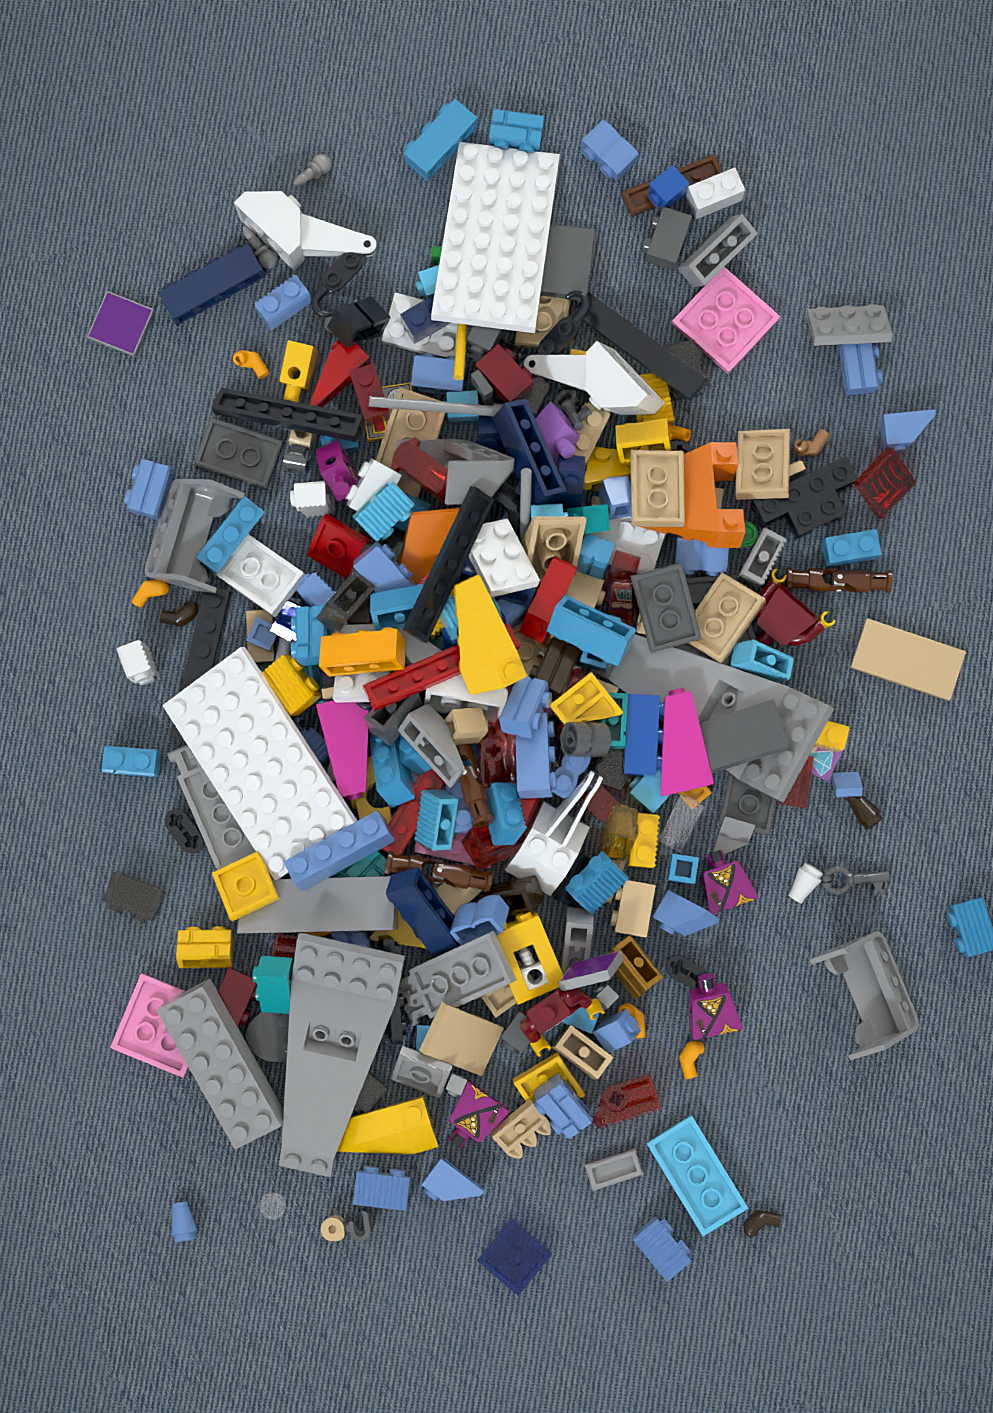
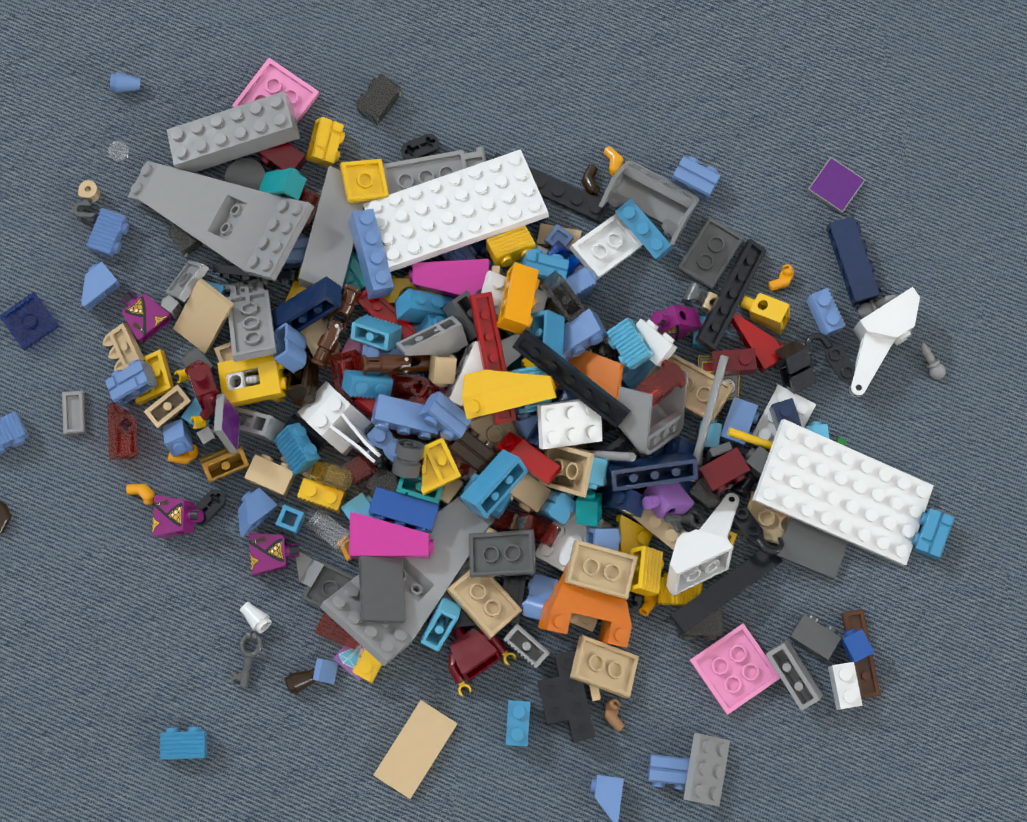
camera: 100 degrees right, 5 degrees down
(131, 761) = (483, 118): dark azure brick -> none
(138, 662) = (558, 138): white brick -> none
(313, 499) = (657, 297): white brick -> none
(336, 545) = (617, 307): red tile -> none
(391, 1129) = (151, 252): yellow wedge -> none
(440, 139) = (938, 469): dark azure brick -> none
(609, 151) = (900, 607): medium blue brick -> none
(697, 1175) = (50, 474): medium azure plate -> none
(750, 536) = (551, 640): green plate -> none
(853, 580) = (491, 720): reddish brown piece -> none
(876, 990) = (153, 654): light grey windscreen -> none
(884, 482) = (566, 765): clear red tile -> none

